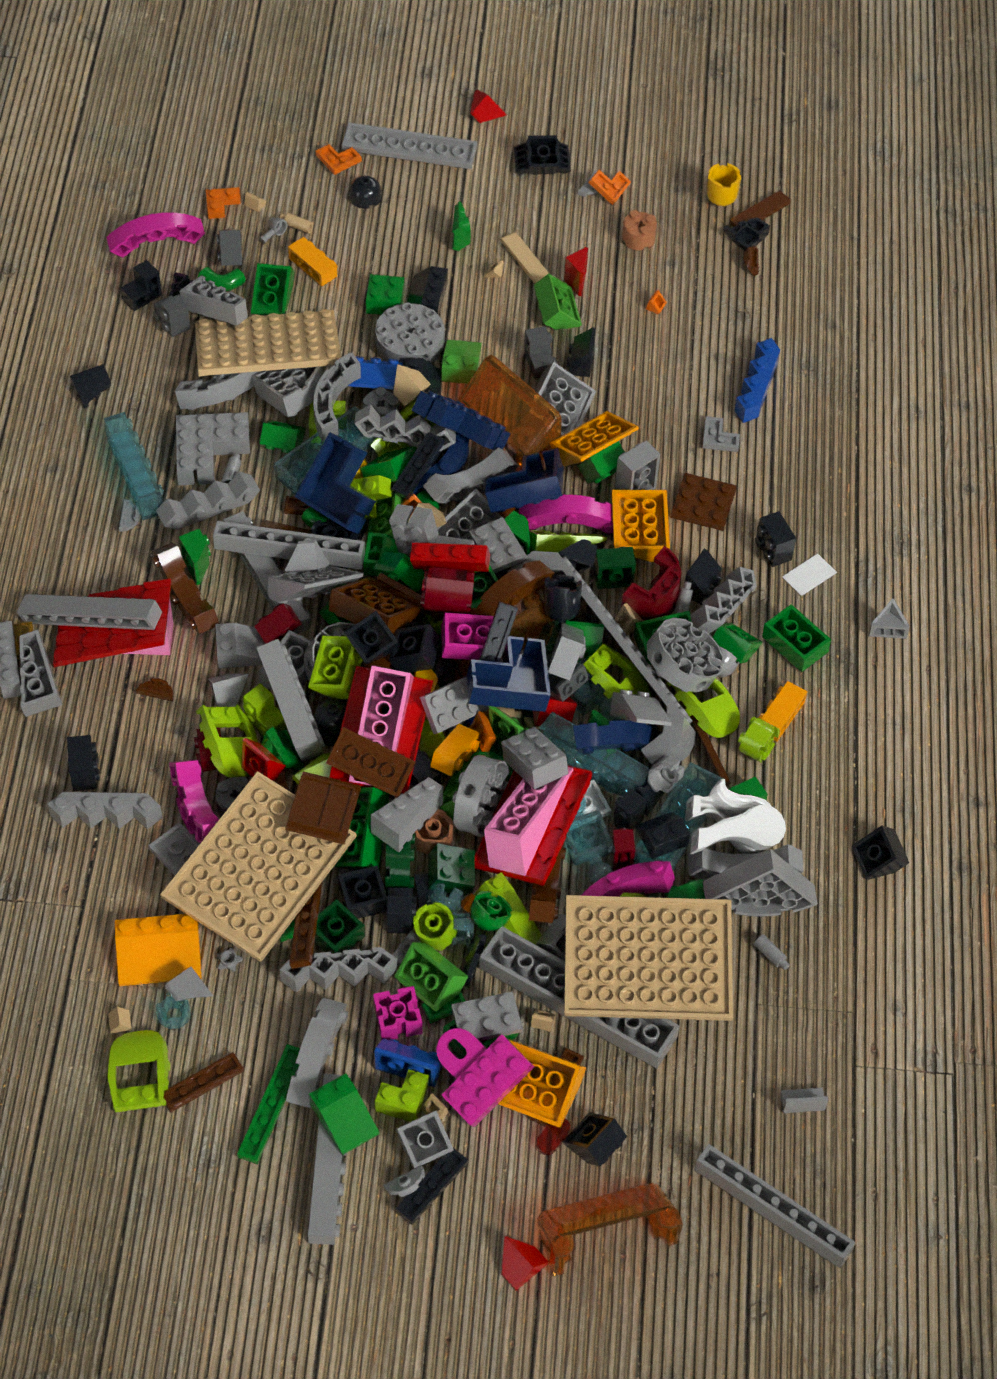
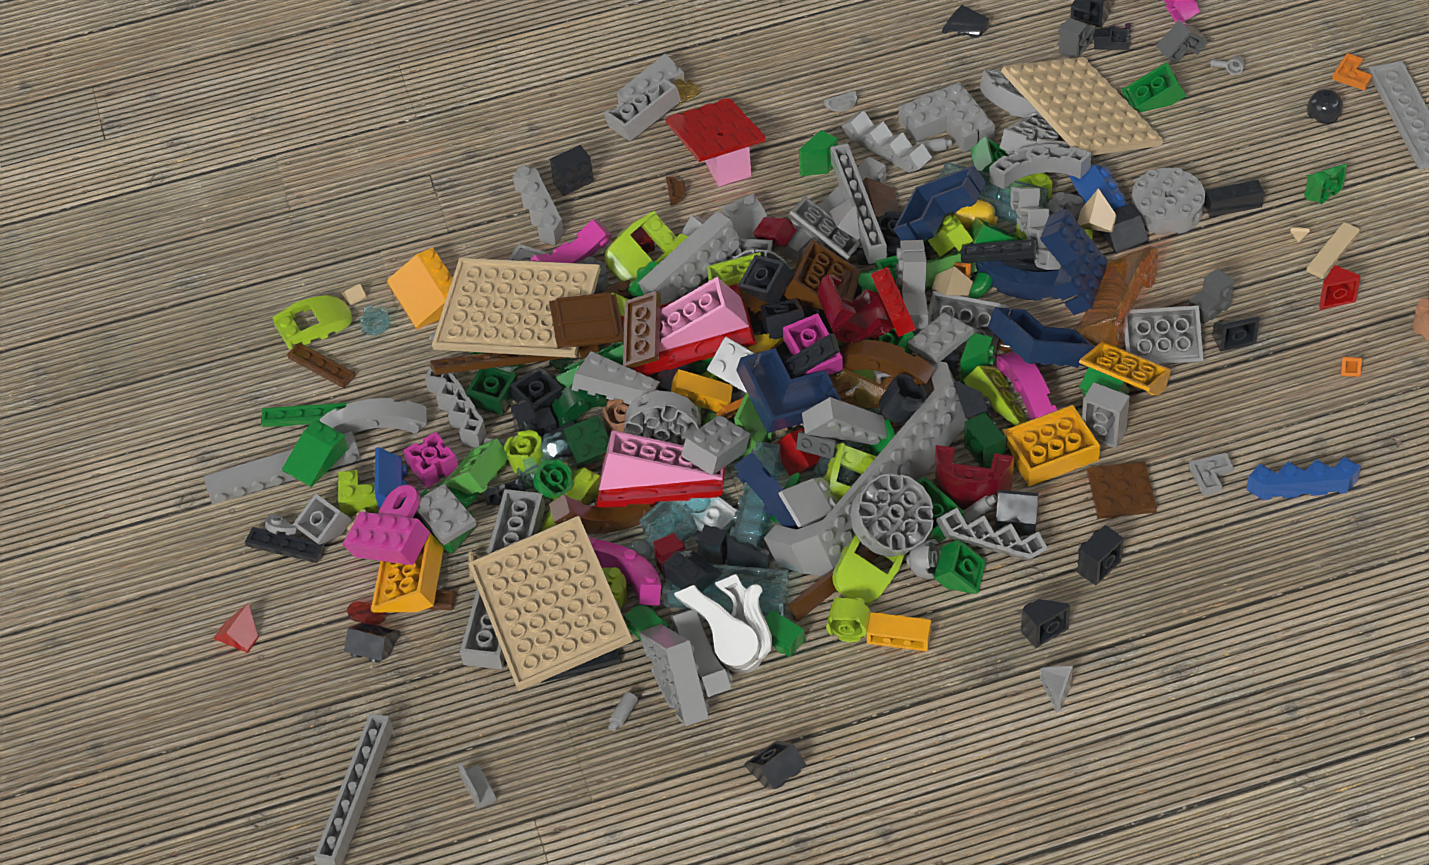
camera: 75 degrees right, 5 degrees down
(90, 611) = (714, 109): light grey brick -> none
(134, 465) = (890, 78): clear light blue brick -> none
(184, 591) = (781, 166): reddish brown brick -> none
(187, 986) = (395, 317): light grey slope -> none
(214, 301) = (1104, 53): light grey wedge -> none
(218, 198) = (1238, 15): orange plate -> none
(229, 281) = (1138, 54): green cylinder -> none
(254, 202) = (1256, 39): tan slope -> none
(258, 758) = (621, 269): red slope -> none
(297, 222) = (1250, 77): tan cylinder -> none
(312, 261) = (1210, 103): light orange brick -> none
(384, 293) = (1206, 164): green brick -> none
(457, 486) = (997, 286): light grey brick -> none
(460, 361) = (1173, 246): bright green slope -> none
(557, 303) = (1289, 291): bright green slope -> none
(562, 1222) = (315, 694): clear orange windscreen -> none
(627, 618) = (928, 469): tan slope -> none
(665, 774) = (757, 552): light grey hair -> none
(796, 638) = (989, 612): green brick -> none
(809, 574) = (1088, 605): white sticker -> none
(825, 605) = (1044, 620): none -> black slope

